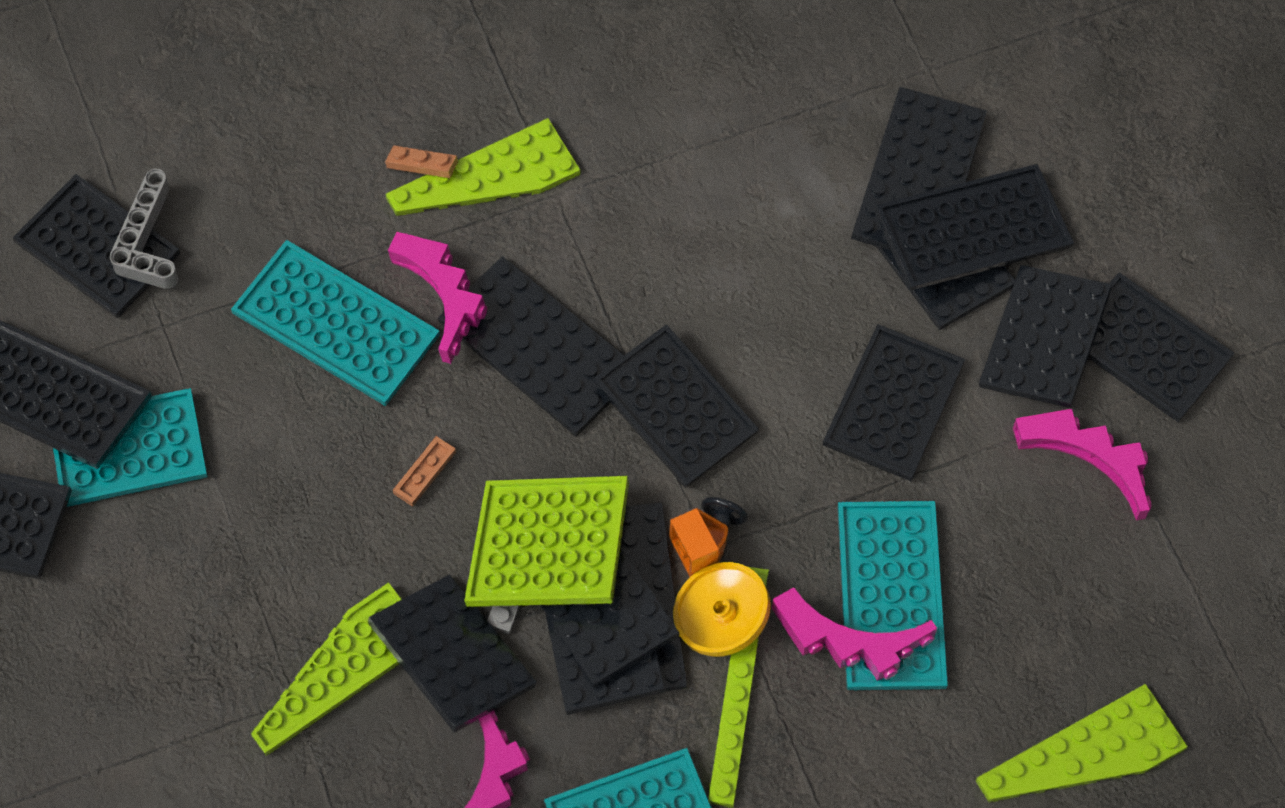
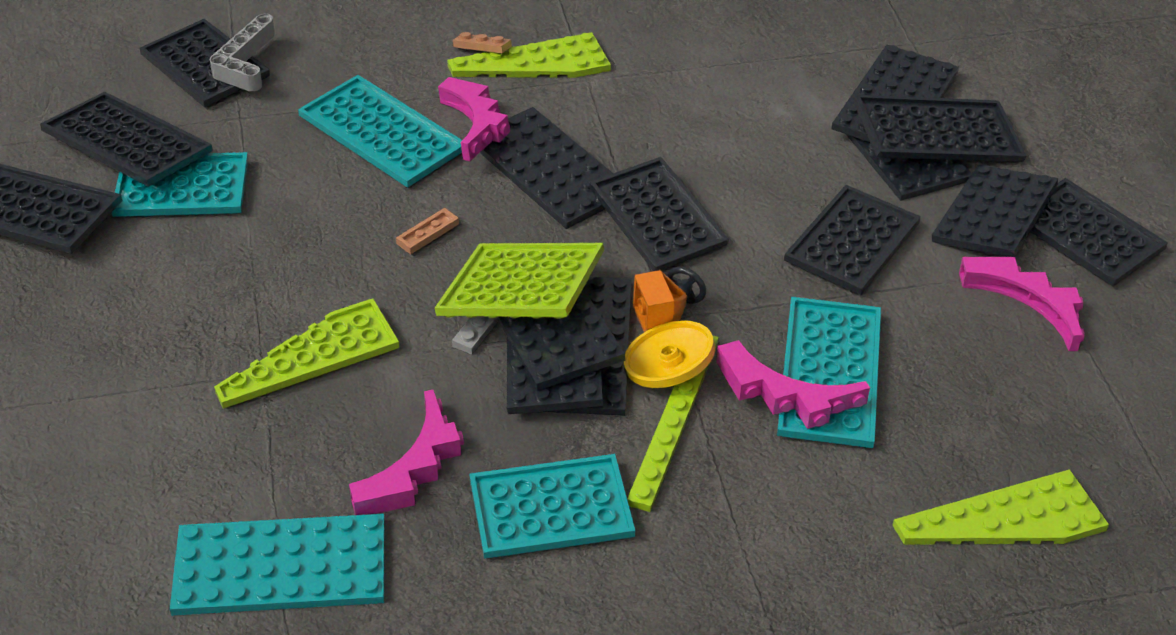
camera: 10 degrees right, 20 degrees down
(451, 653) = (414, 351): black plate -> none

